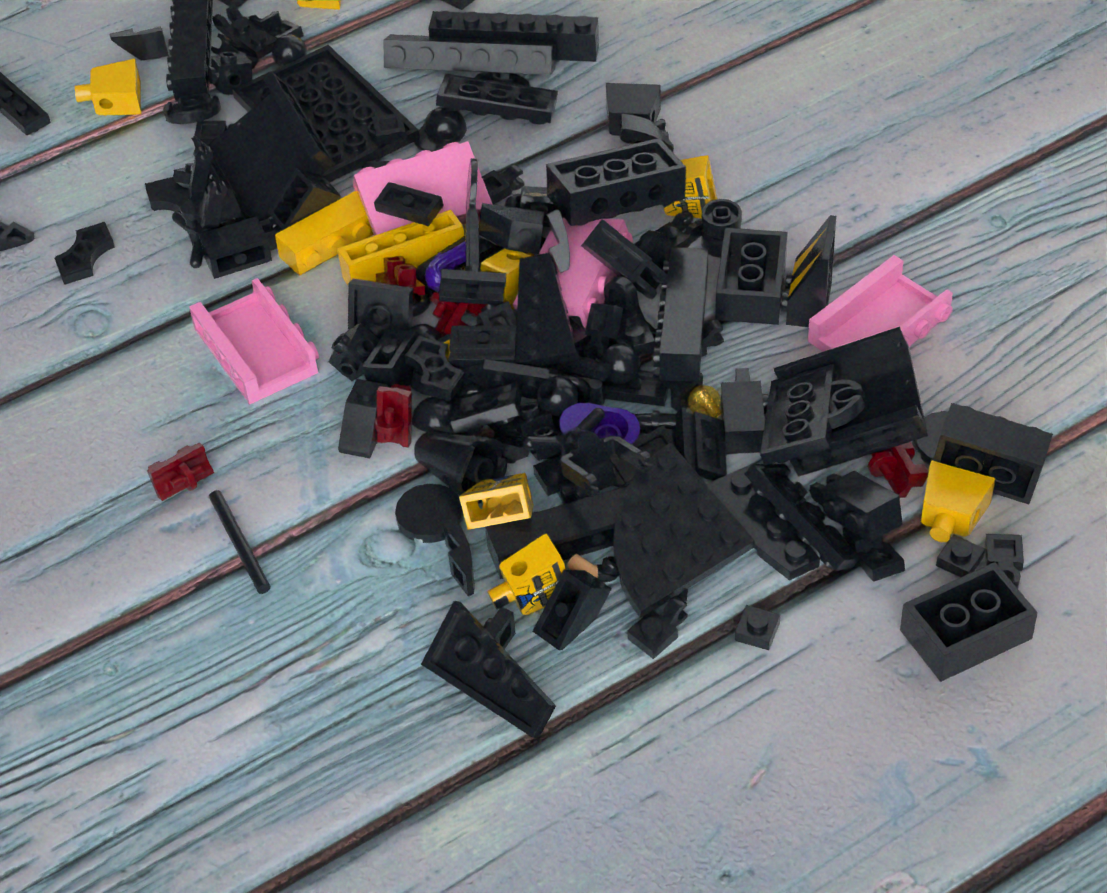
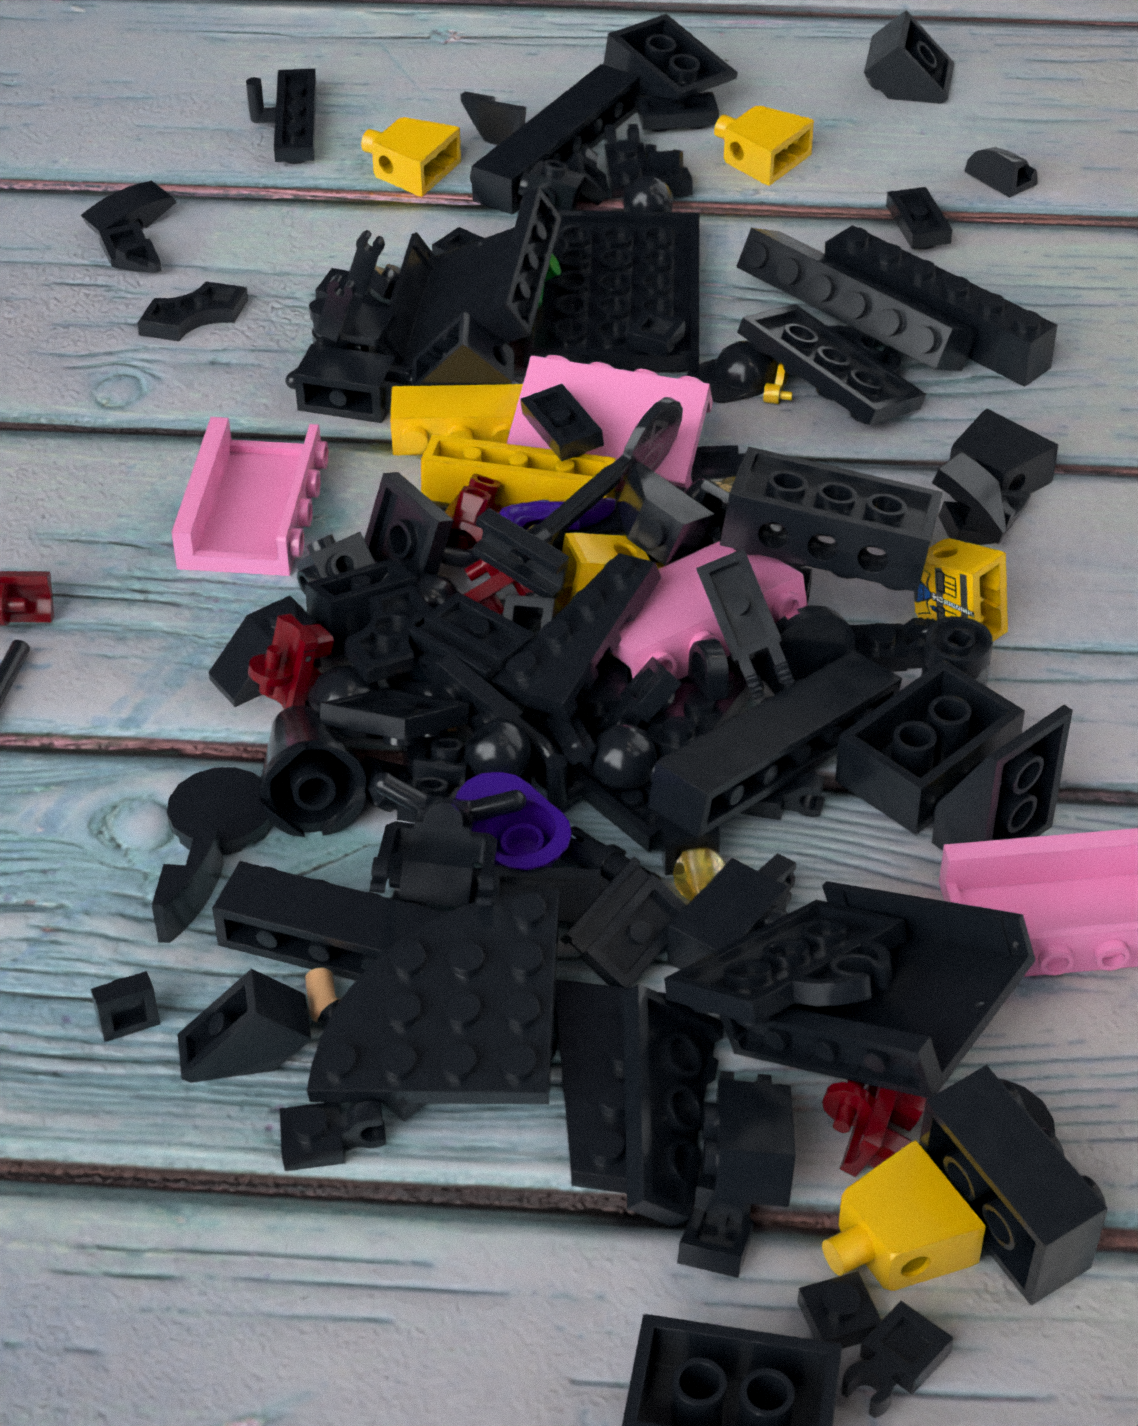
camera: 35 degrees right, 5 degrees down
(192, 108) = (472, 213): black tile -> none
(474, 130) = (774, 392): none -> yellow piece
(482, 669) = (49, 1046): black wing -> none
(503, 501) = (316, 843): yellow torso -> none
(529, 576) = (222, 948): yellow torso -> none
(560, 252) = (698, 548): slope -> none
(757, 627) = (453, 1219): black plate -> none

